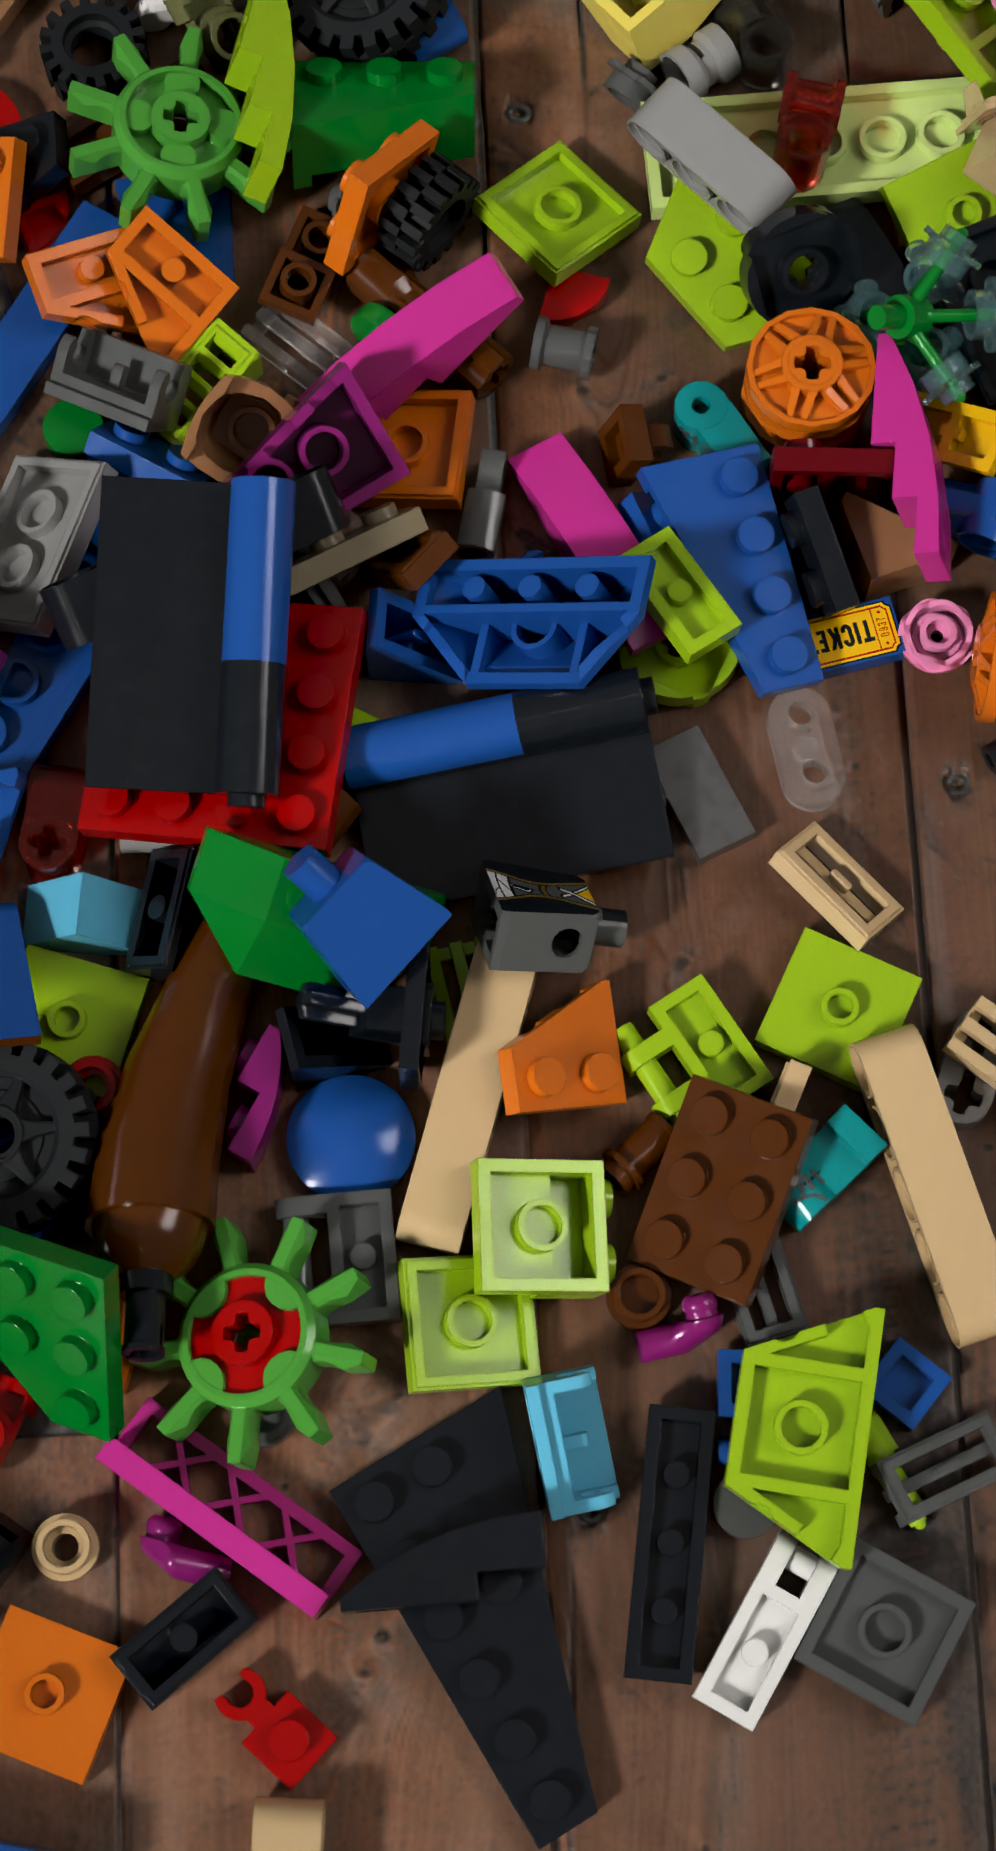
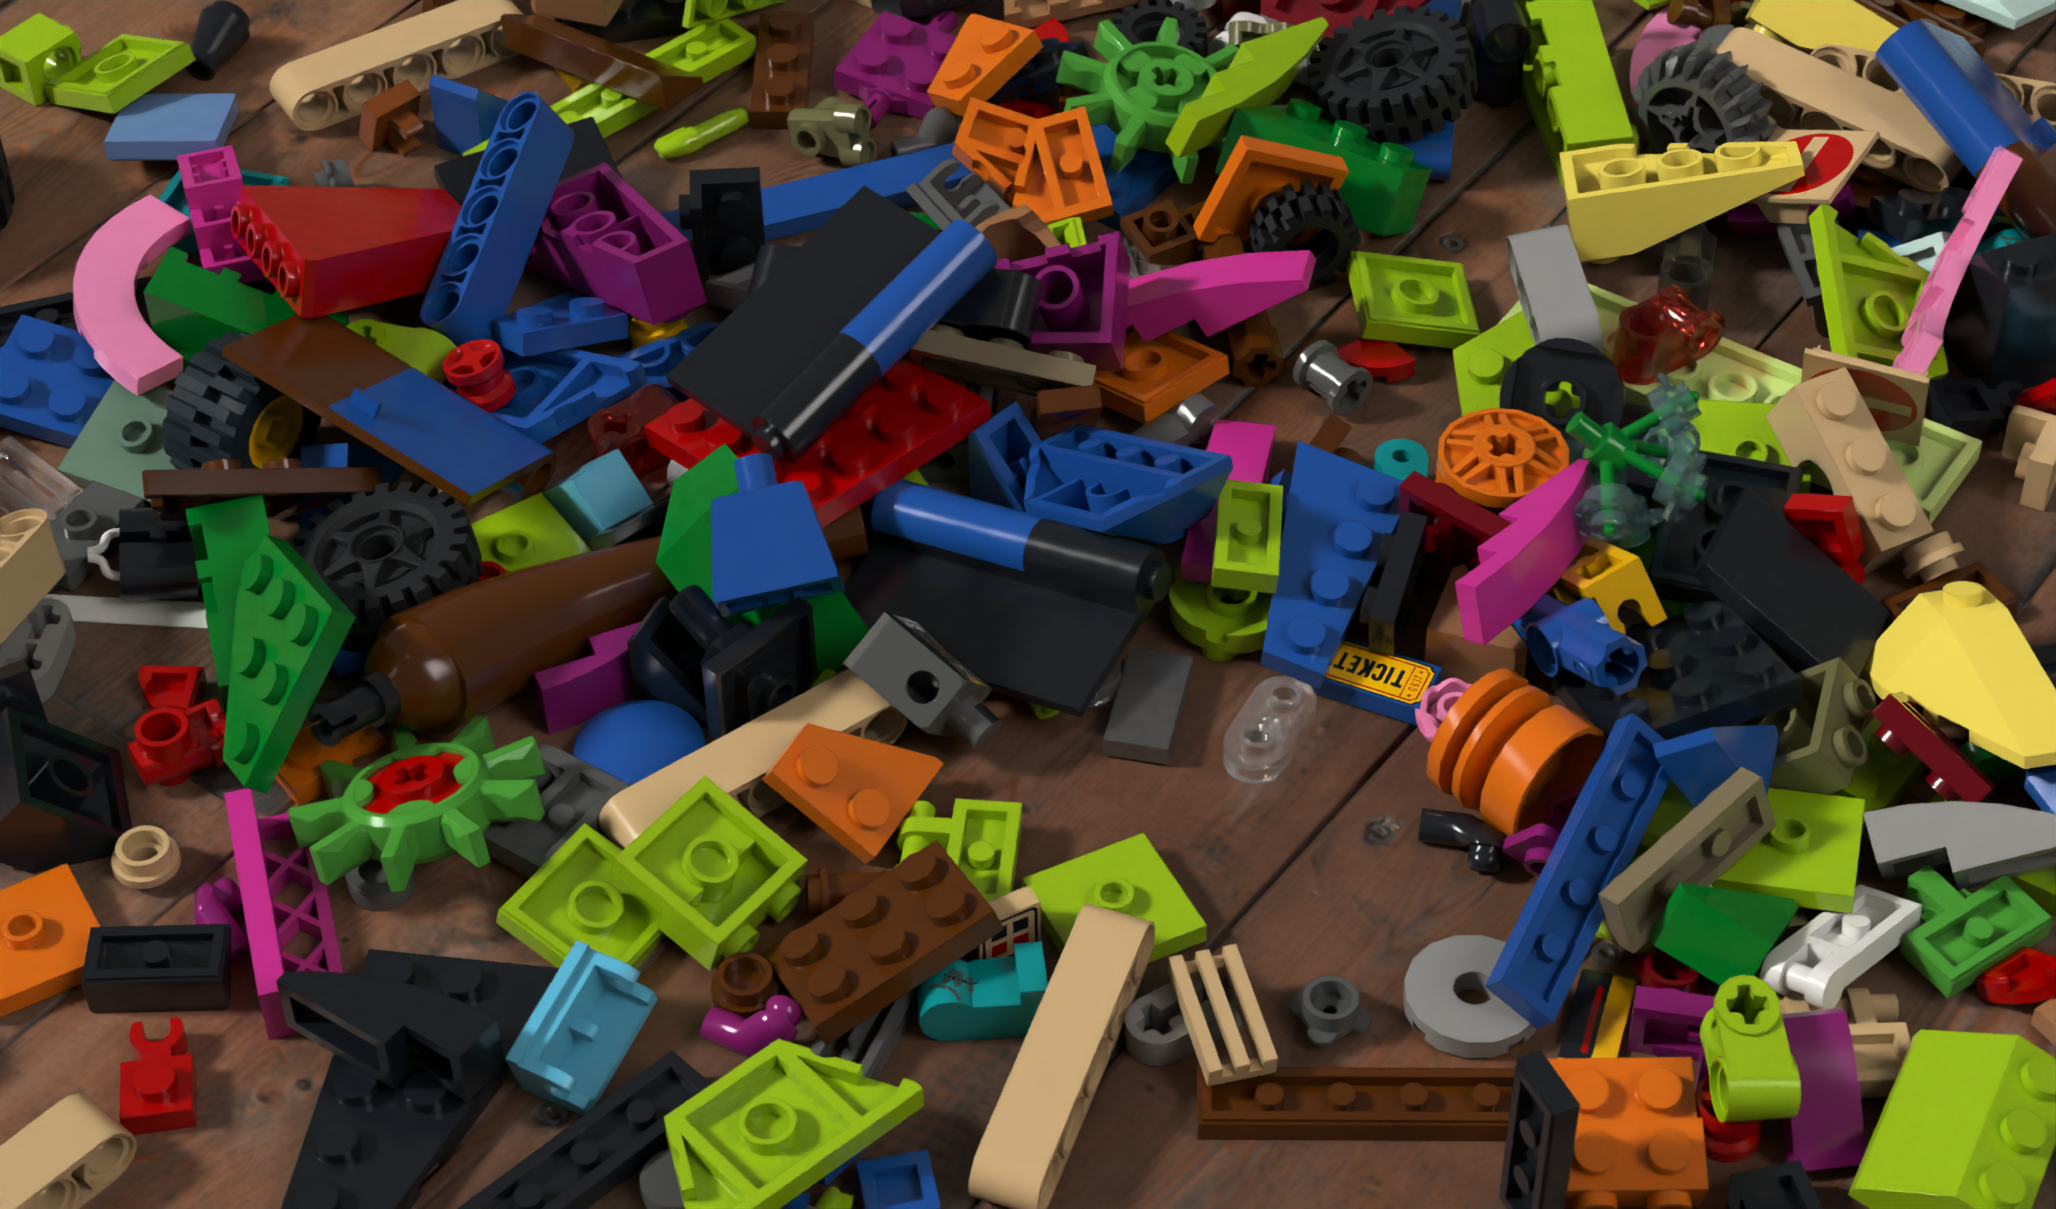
camera: 40 degrees right, 30 degrees down
(704, 61) = (1627, 272): light grey wheel -> none
(830, 890) = (1187, 819): tan tile -> none

